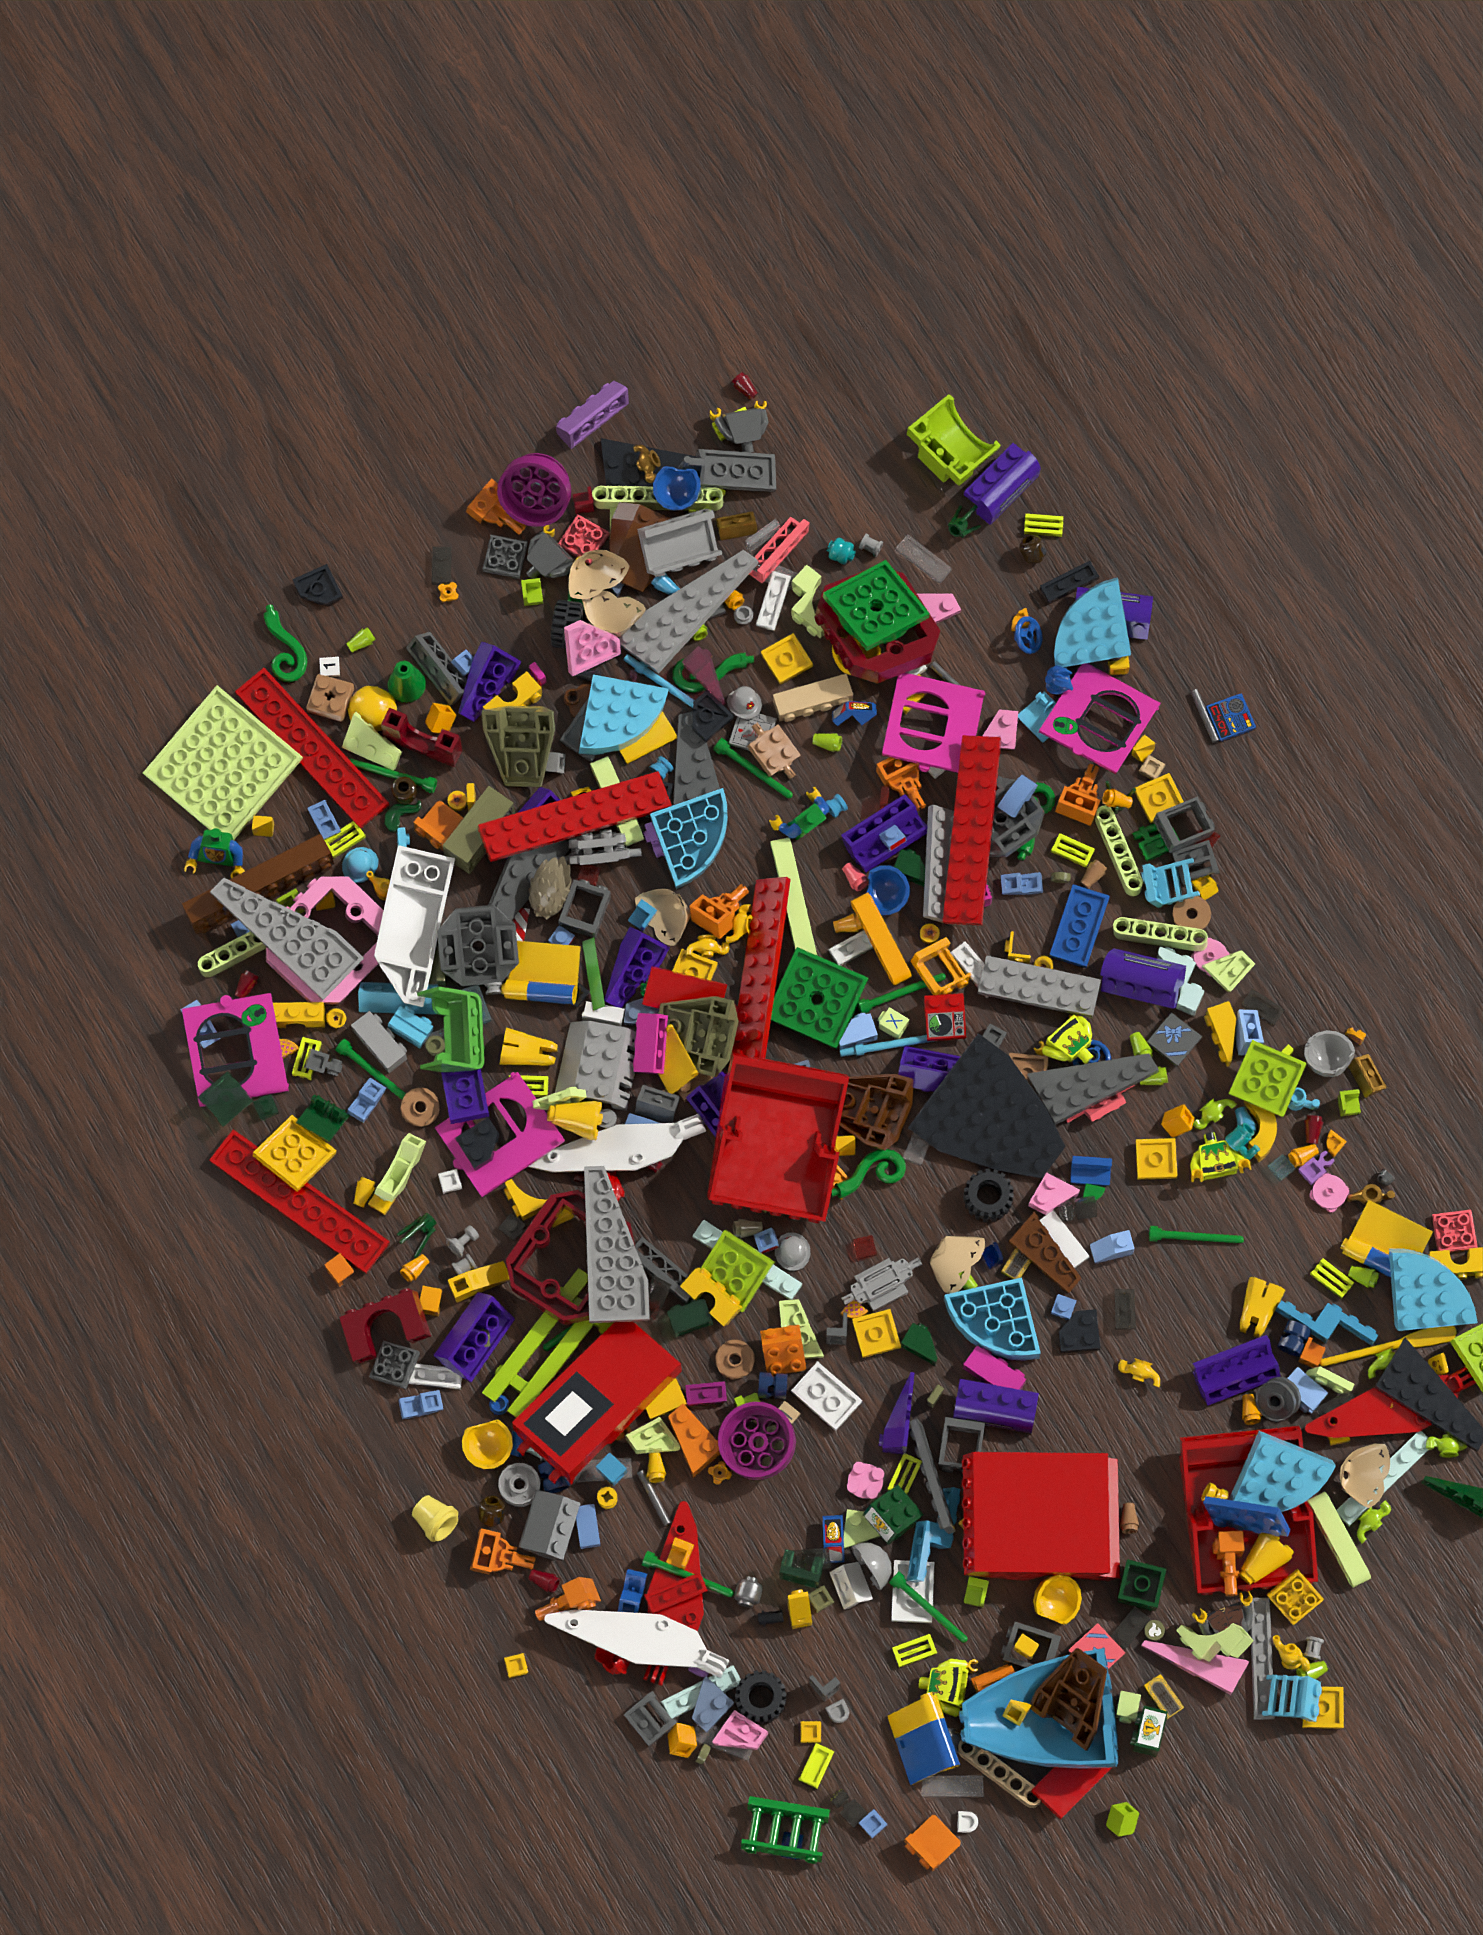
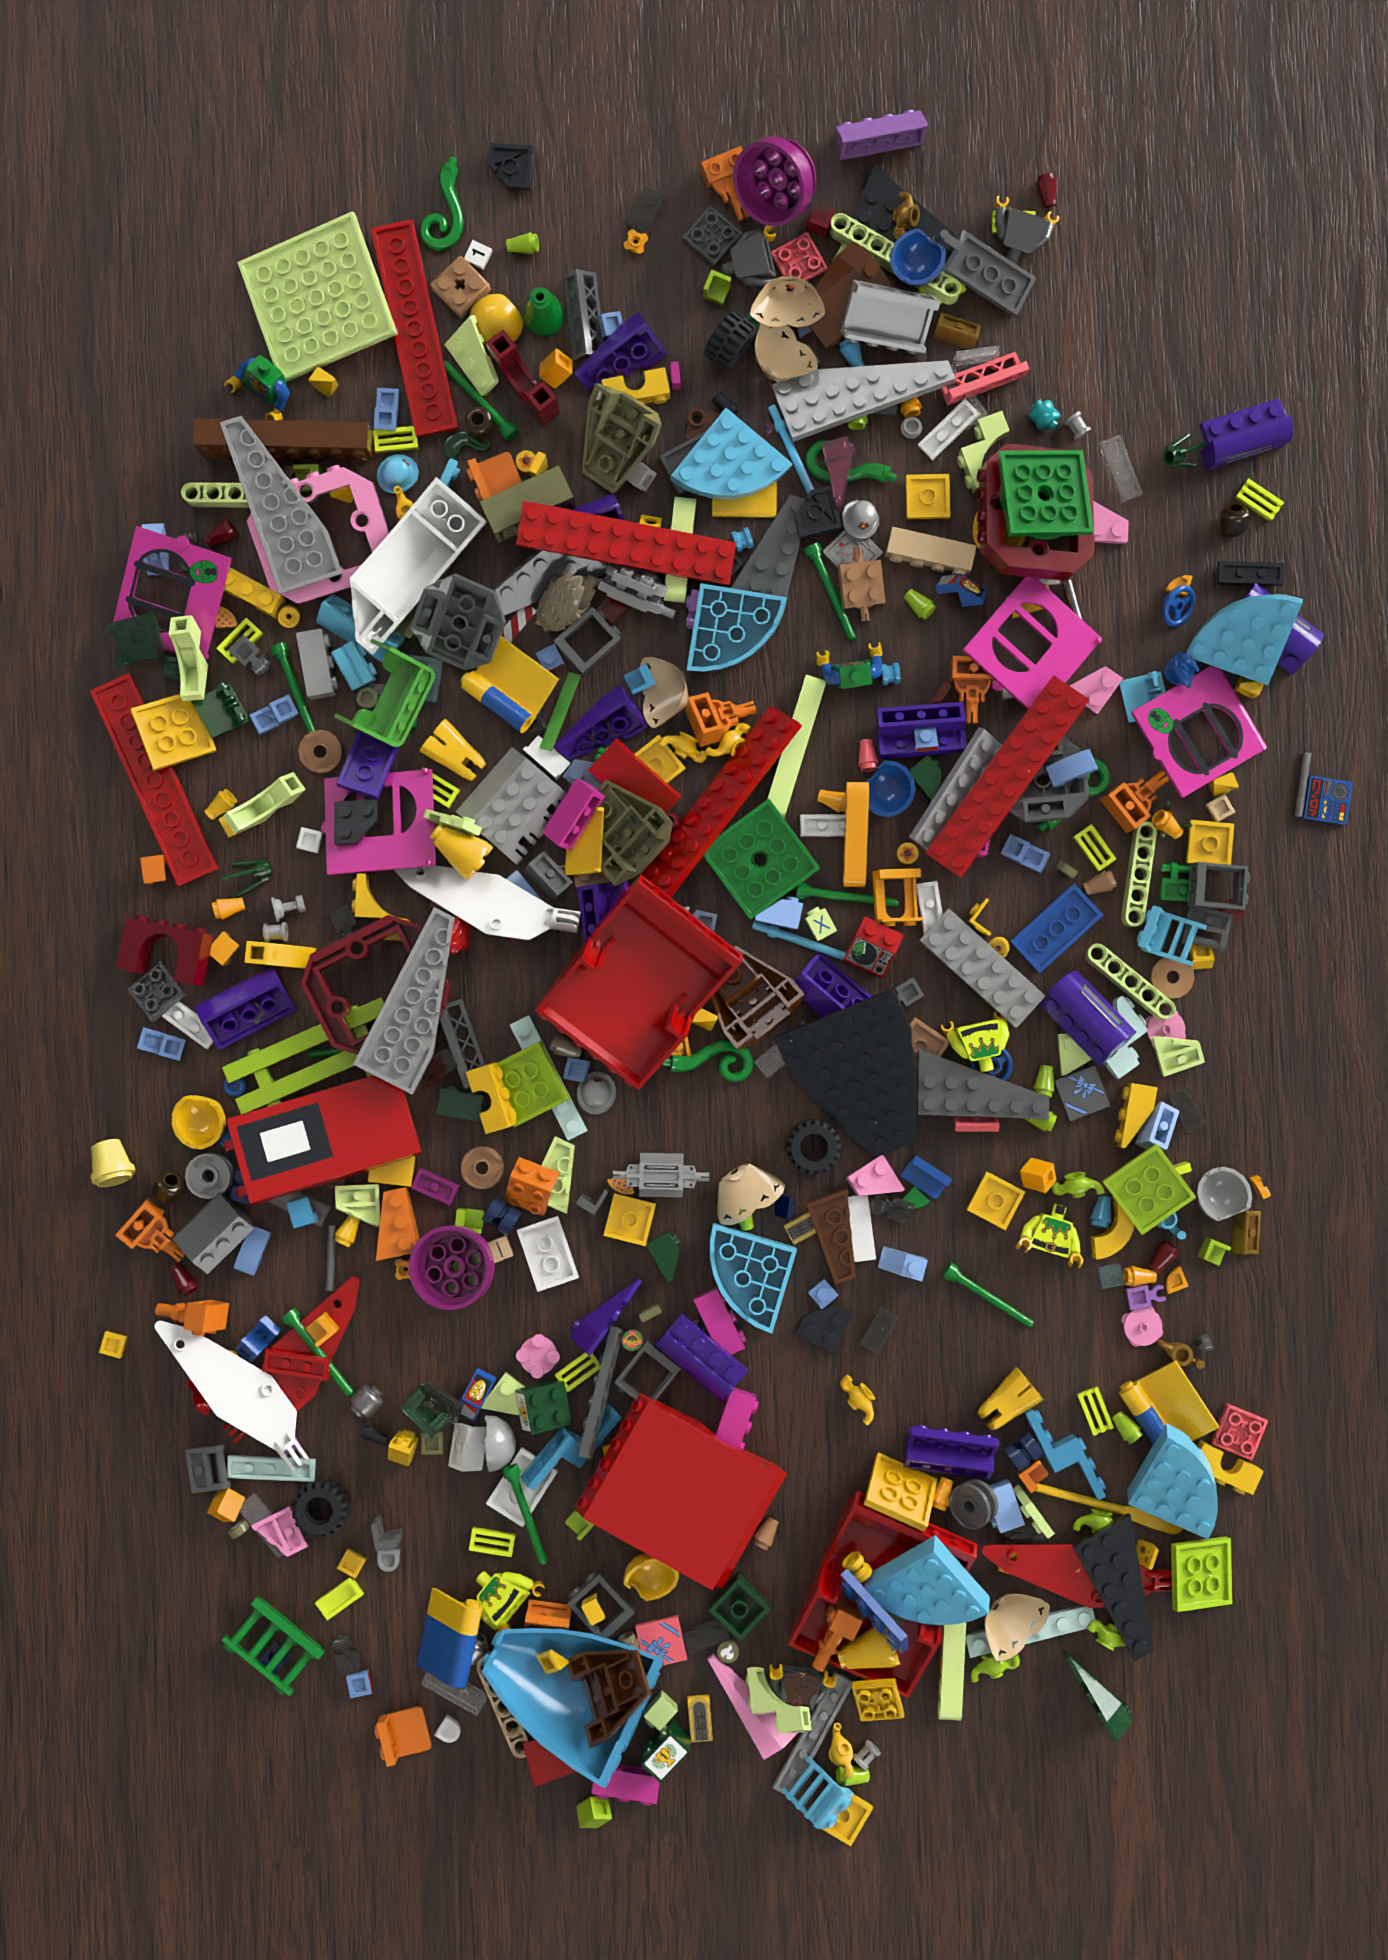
camera: 25 degrees right, 15 degrees up
(277, 1088) = (192, 665): none -> yellowish green arch
(493, 988) = (455, 672): light grey bush -> none
(588, 646) = (738, 375): bright pink plate -> none
(607, 1502) = (288, 1232): yellow wheel -> none
(609, 1118) = (493, 863): light grey plate -> none
(710, 1705) = (270, 1488): sand blue wing -> none
(864, 1247) = (667, 1128): clear red tile -> none
(933, 1427) = (632, 1340): none -> tile
(948, 444) = (1214, 364): lime piece -> none
(1050, 1434) = (735, 1417): none -> dark pink brick
(1134, 1780) = (630, 1784): none -> dark pink brick
(1148, 1015) = (1070, 1054): none -> yellowish green wing
(1214, 1420) = (900, 1492): none -> yellow plate
(1241, 1136) = (1088, 1229): teal piece -> none

